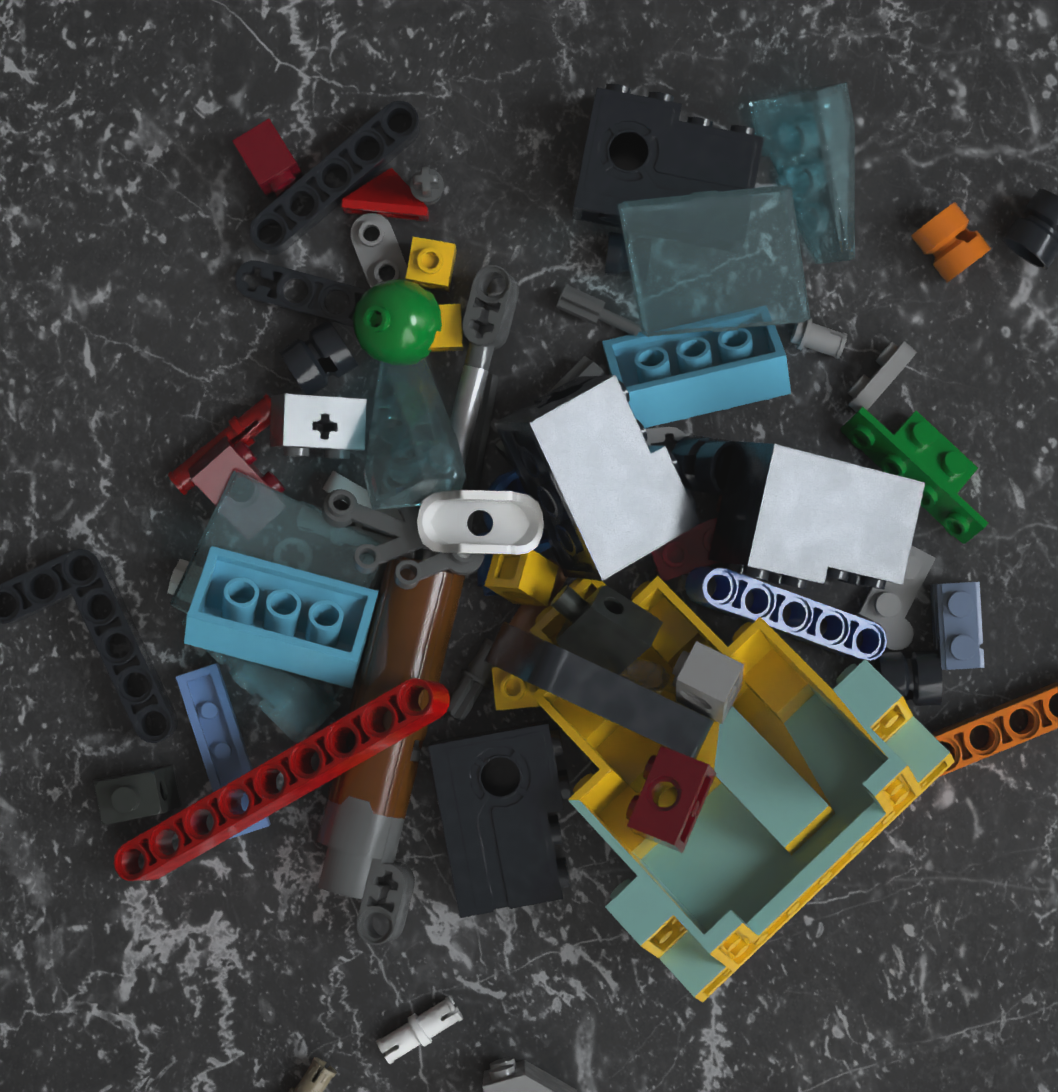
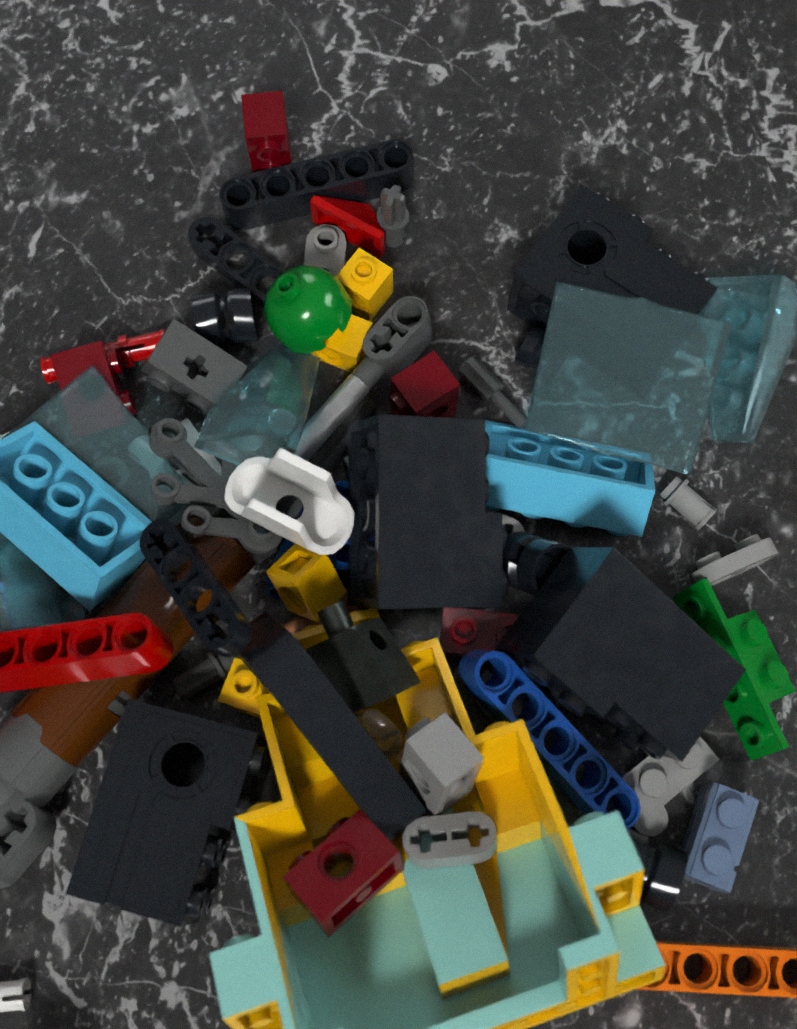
camera: 25 degrees right, 15 degrees down
(437, 637) = (190, 588): none -> black beam
(540, 357) = (425, 389): none -> dark red brick
(747, 743) = (452, 851): none -> light grey beam

